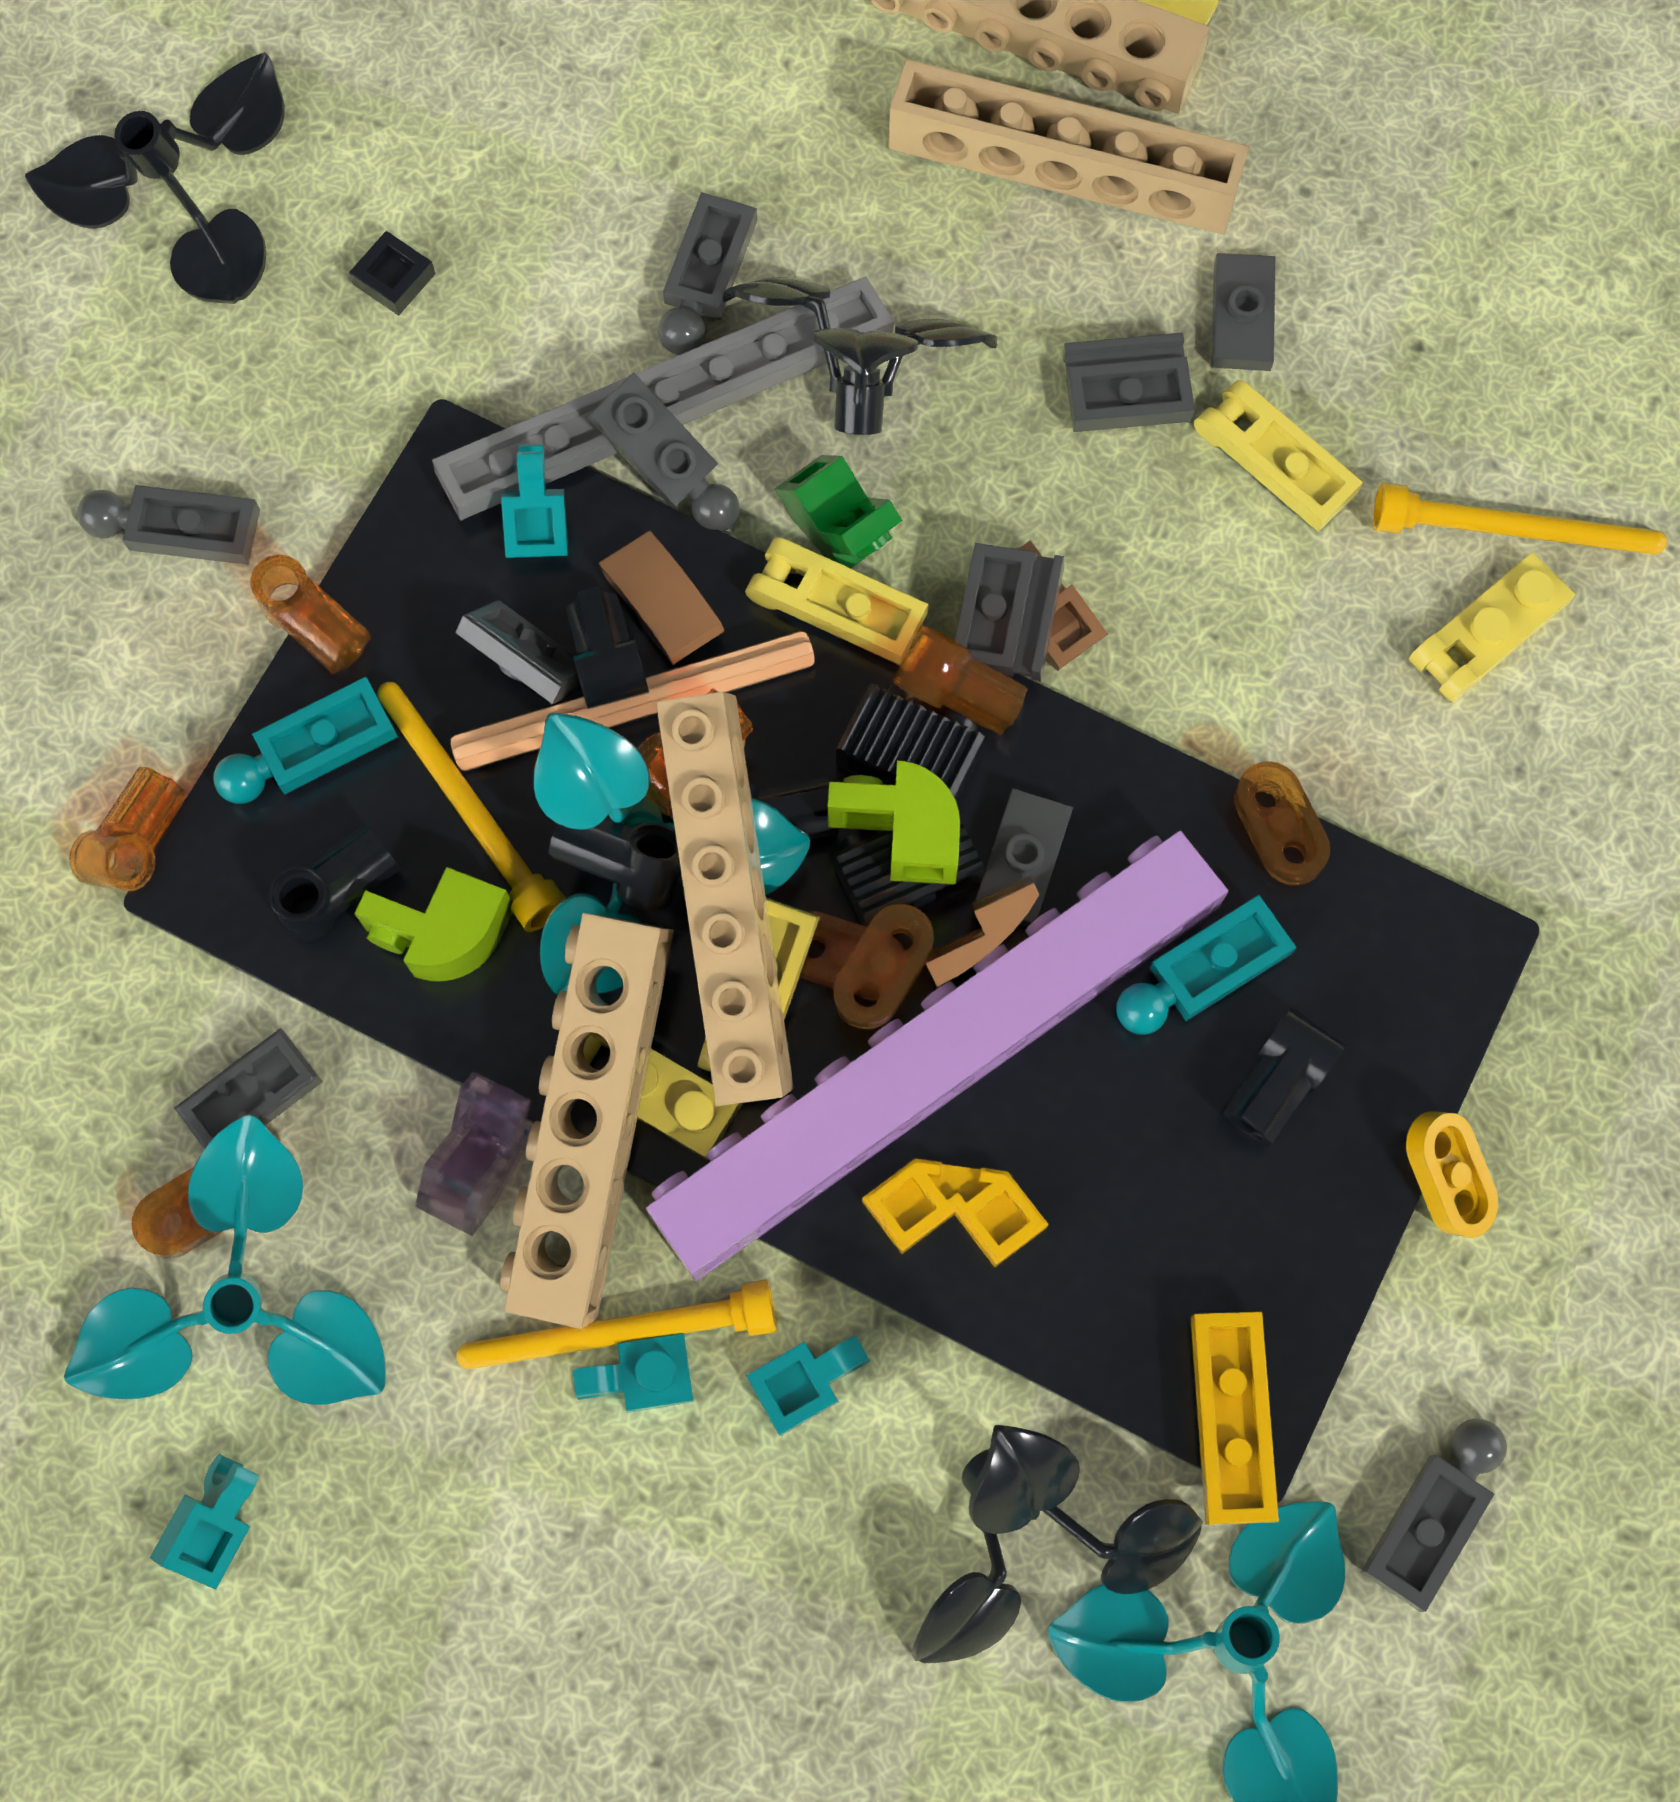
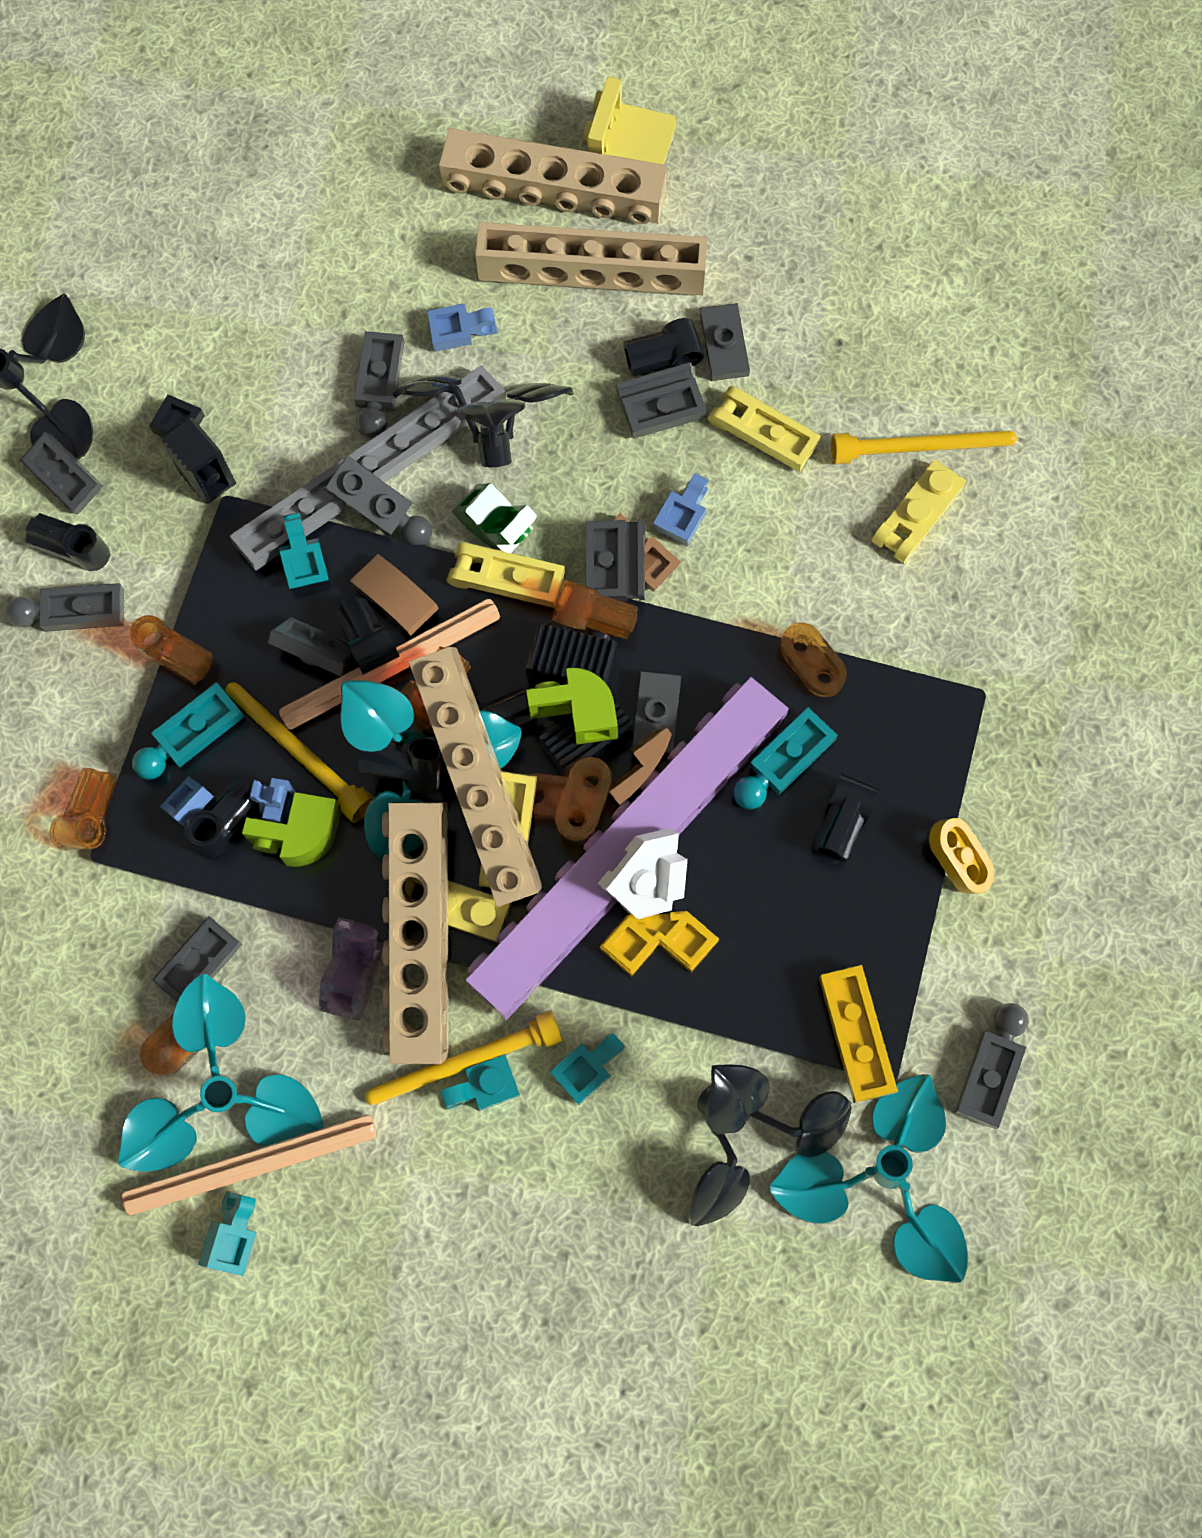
camera: 10 degrees left, 0 degrees up
(191, 422) = (67, 541): none -> black piece
(204, 318) = (61, 473): none -> dark grey plate
(261, 1420) = (248, 1164): none -> light nougat axle
(283, 846) = (186, 800): none -> medium blue plate
(410, 337) = (198, 460): none -> black brick
(413, 872) = (273, 801): none -> medium blue plate
(836, 210) = (453, 326): none -> medium blue plate
(959, 1104) = (648, 875): none -> white plate
(1125, 560) = (683, 514): none -> medium blue plate
(1163, 303) = (672, 346): none -> black piece

